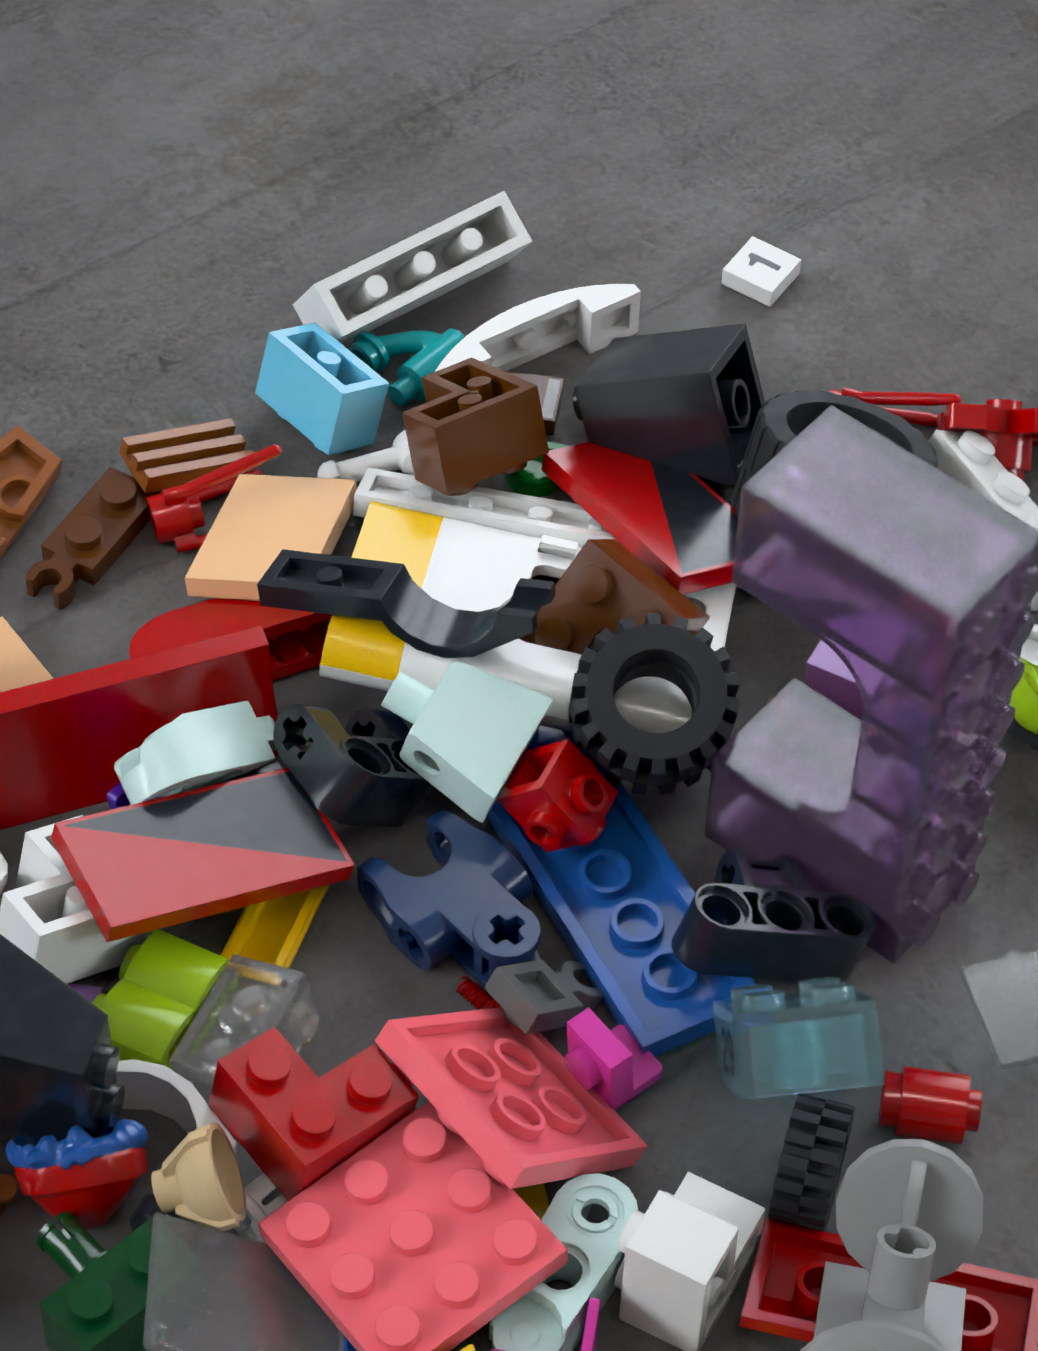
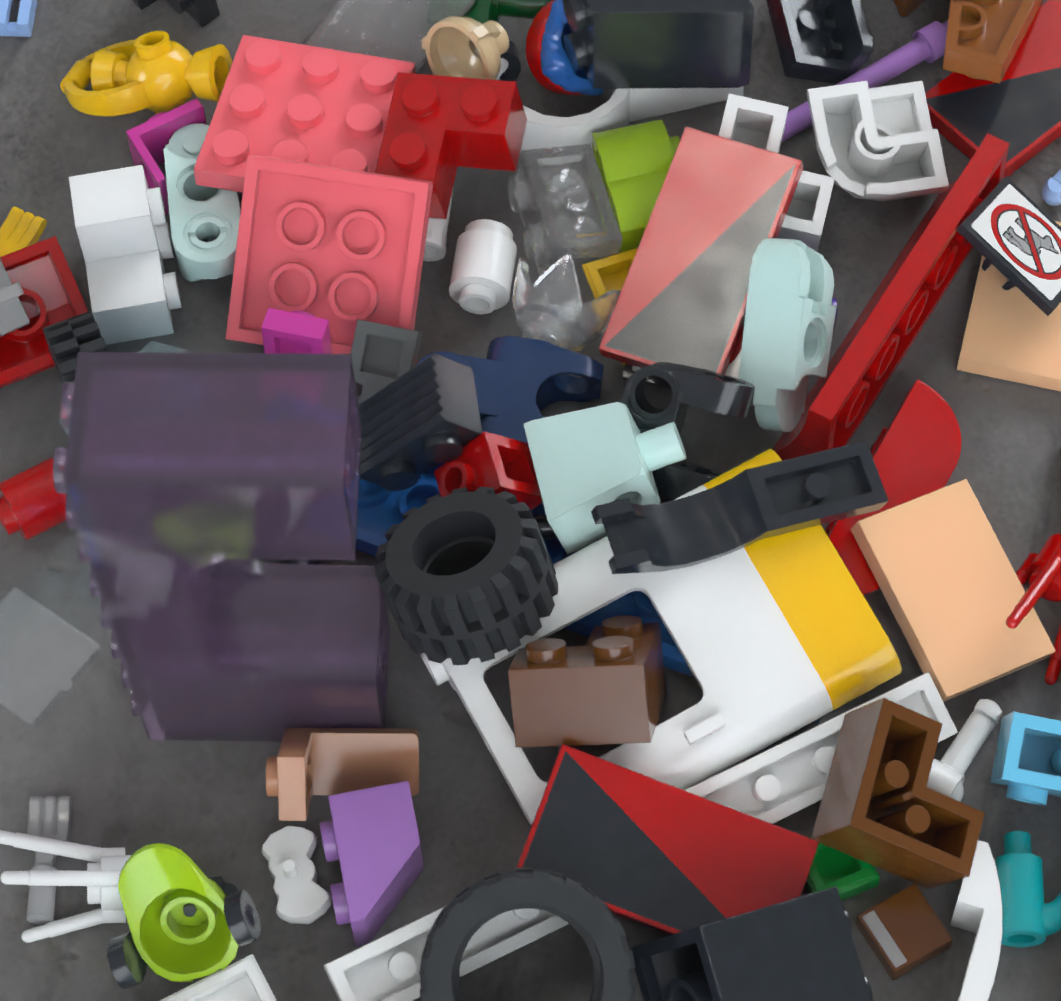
camera: 145 degrees right, 10 degrees up
(352, 926) = (554, 307): none -> clear piece
(360, 1024) = (483, 267): none -> white brick
(578, 871) = (418, 423): none -> black brick

